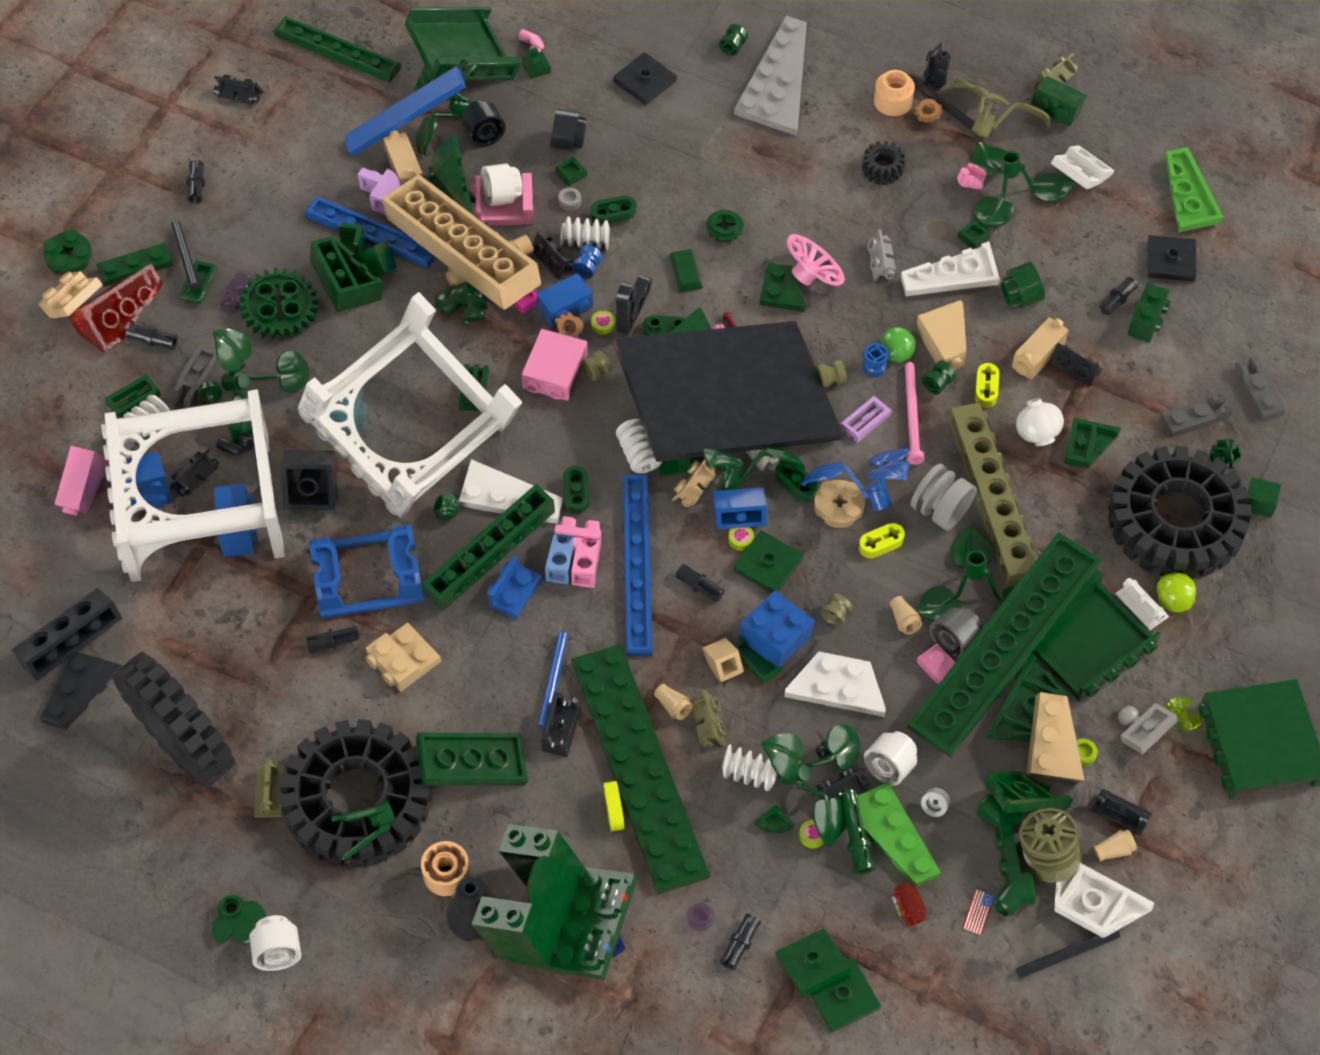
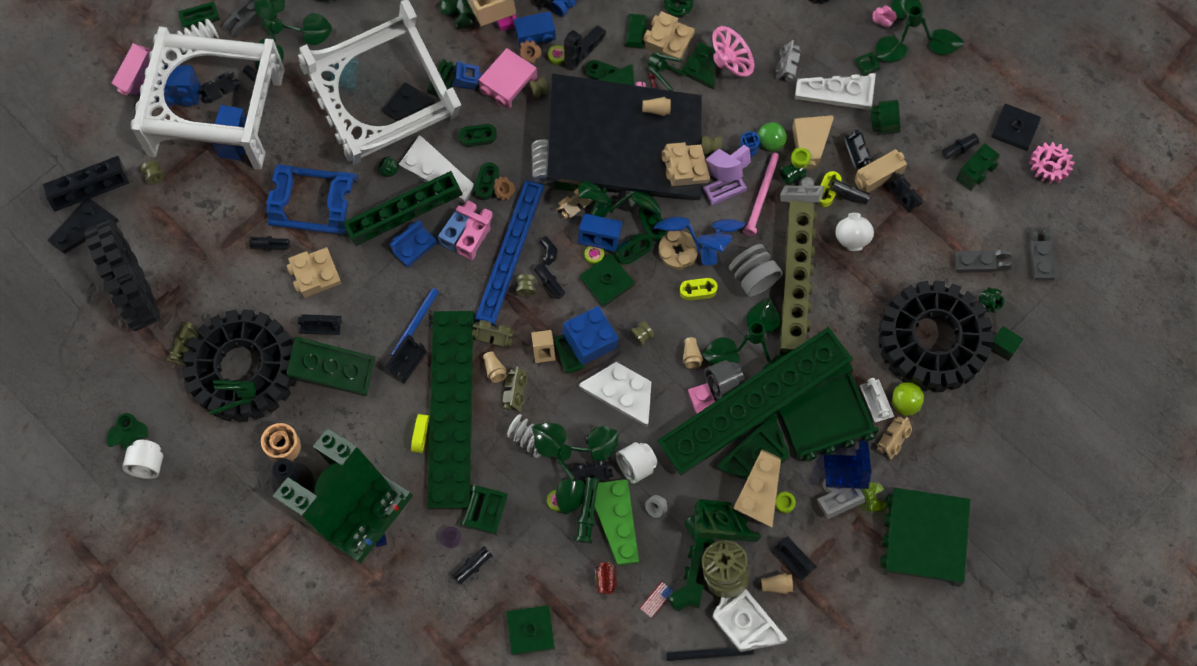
camera: 20 degrees right, 10 degrees up
(148, 597) = (152, 172): none -> olive wheel
(209, 392) = (252, 28): dark green plate -> none
(309, 479) = (294, 117): black brick -> none
(435, 716) = (320, 324): none -> black hinge
(439, 426) = (407, 102): none -> black wing
(503, 372) = (466, 75): none -> blue window
(542, 440) = (477, 135): none -> dark green plate
(600, 492) = (503, 188): none -> medium nougat animal
(666, 661) = (486, 330): none -> olive hinge
(673, 595) = (525, 285): none -> olive wheel
(687, 548) = (551, 251): none -> black arm
(728, 266) = (668, 36): none -> tan plate
(729, 298) = (658, 63): none -> dark green plant
(738, 871) = (491, 510): none -> dark green plate
(755, 343) = (657, 106): none -> tan cone
(774, 821) = (533, 482): dark green tile -> none
(787, 518) = (633, 249): none -> dark green plate
(811, 401) = (685, 164): none -> tan plate
(813, 962) = (517, 599): dark green plate -> none
(862, 391) = (726, 166): none -> lavender brick
(944, 356) = (800, 157): none -> lime tile
(959, 395) = (804, 192): none -> light grey plate
(996, 327) = (853, 143): none -> black hinge
(1014, 380) = (849, 191): none -> black pin
(1082, 167) = (975, 32): white slope -> none
(1088, 441) = (888, 258): dark green wing -> none
(1147, 691) = (849, 470): none -> clear blue bracket
(1182, 629) = (900, 430): none -> tan hinge
(1190, 194) = (1052, 78): bright green wing -> none
(1228, 285) = (1051, 162): none -> bright pink gear

